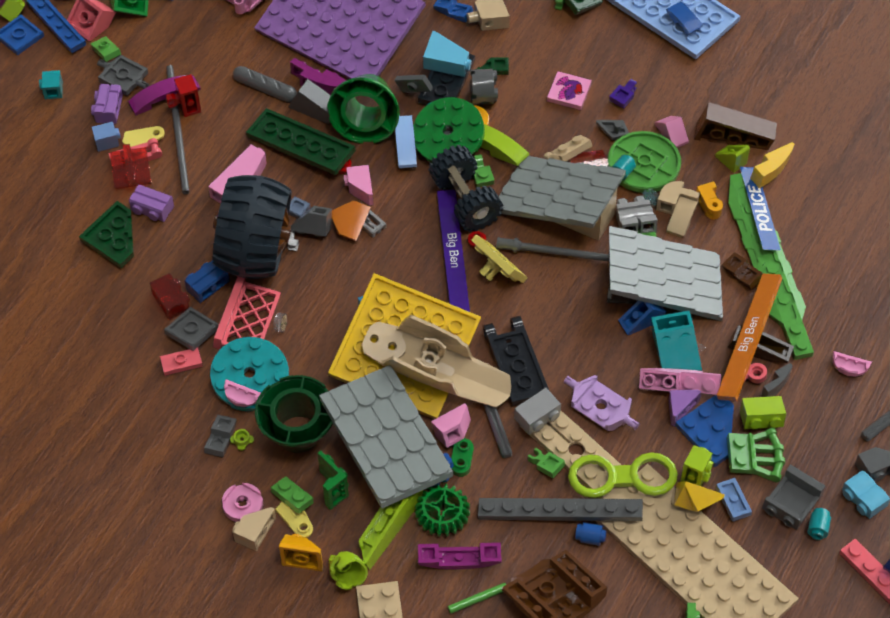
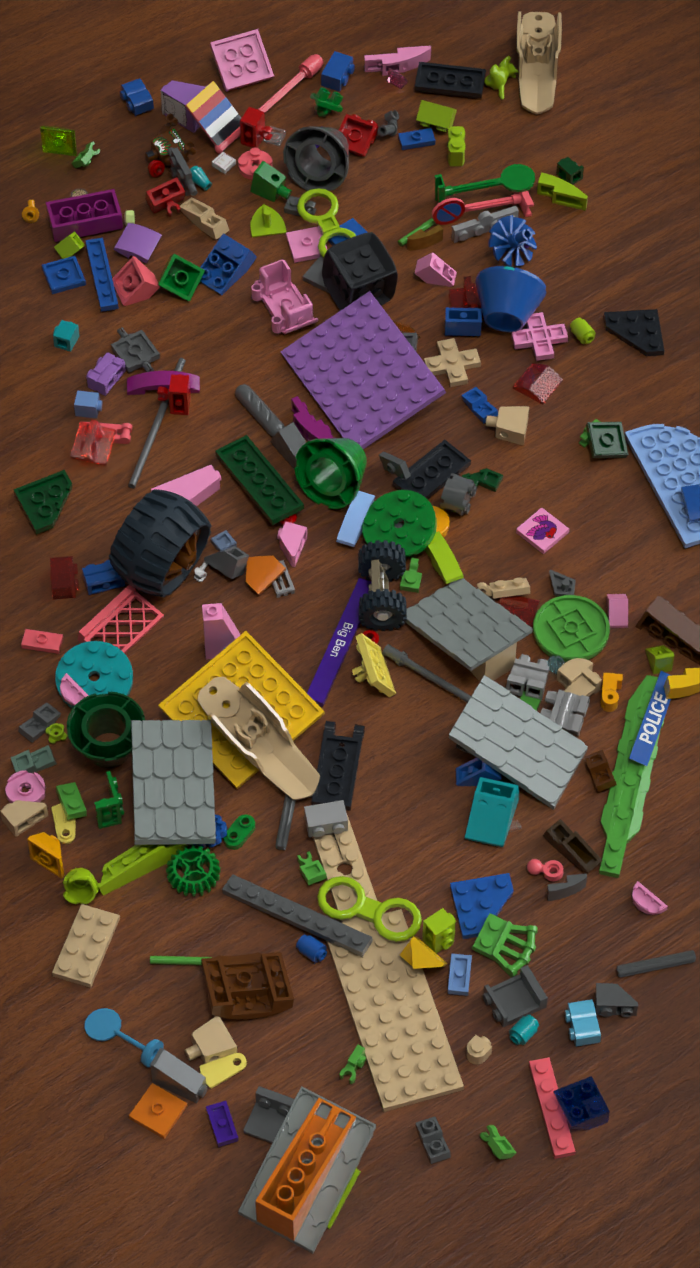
camera: 25 degrees right, 0 degrees up
(105, 49) = (132, 319): bright green plate -> none
(141, 136) = (120, 416): light yellow piece -> none
(151, 203) = (93, 484): medium lavender brick -> none
(191, 328) = (66, 615): dark grey plate -> none
(235, 473) = (34, 761): none -> sand green slope
(280, 322) = (147, 641): clear tile -> none
(344, 286) = (218, 629): none -> bright pink slope
(445, 56) = (438, 450): medium azure slope -> none
(452, 426) = (246, 799): bright pink slope -> none
(459, 557) = (184, 918): magenta slope -> none
(590, 393) = (386, 824): lavender plate -> none
(623, 95) = (590, 555): dark purple plate -> none
(626, 163) = (542, 625): teal brick -> none
(679, 379) = (474, 845): bright pink slope -> none
(681, 403) = (465, 868): medium lavender slope -> none
(686, 229) = (567, 710): none -> light grey hips
(749, 337) = (562, 833): orange tile -> none
(763, 412) = (533, 908): lime brick -> none
(791, 559) = (478, 1050): none -> tan plate

